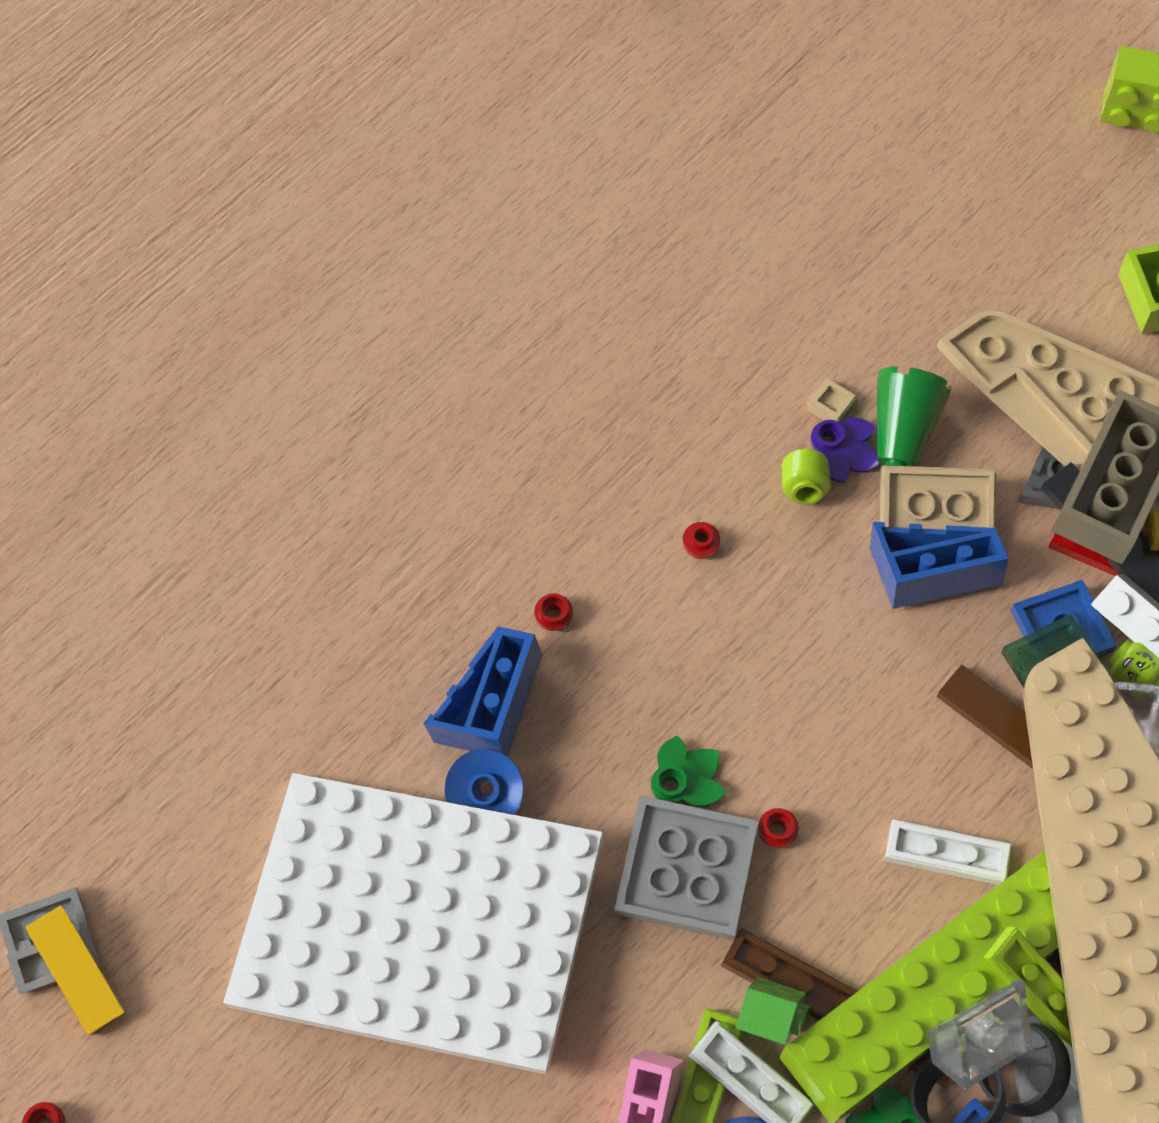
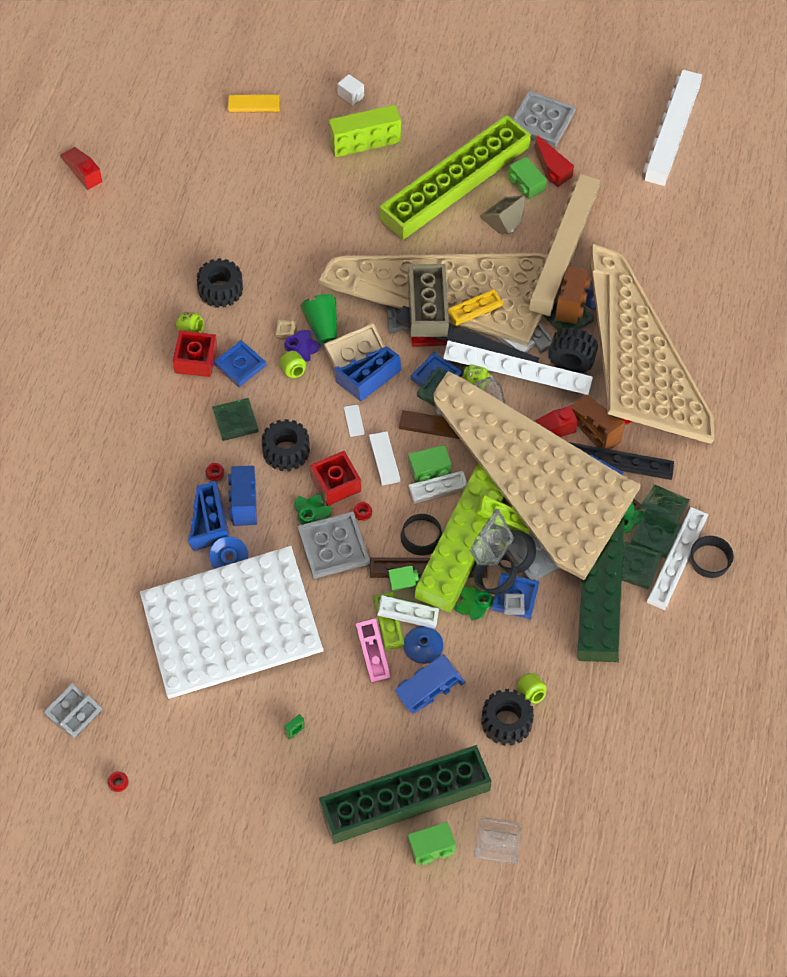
camera: 30 degrees left, 5 degrees down
(75, 970) = (94, 714): yellow tile -> none
(575, 684) = (242, 495): none -> blue wedge
(641, 371) = (195, 353): none -> red brick
(645, 529) = (235, 419): none -> clear green plate
(664, 312) = (190, 322): none -> lime head
(697, 549) = (262, 417): red plate -> none
(712, 598) = (285, 432): none -> black tyre
(713, 427) = (240, 363): none -> blue plate
(761, 738) = (335, 478): none -> red brick
(766, 237) = (219, 271): none -> black tyre
(842, 963) = (416, 549): none -> black tyre
(861, 638) = (354, 420): none -> white sticker
(876, 743) = (384, 458): none -> white tile
(955, 799) = (429, 463): none -> bright green brick

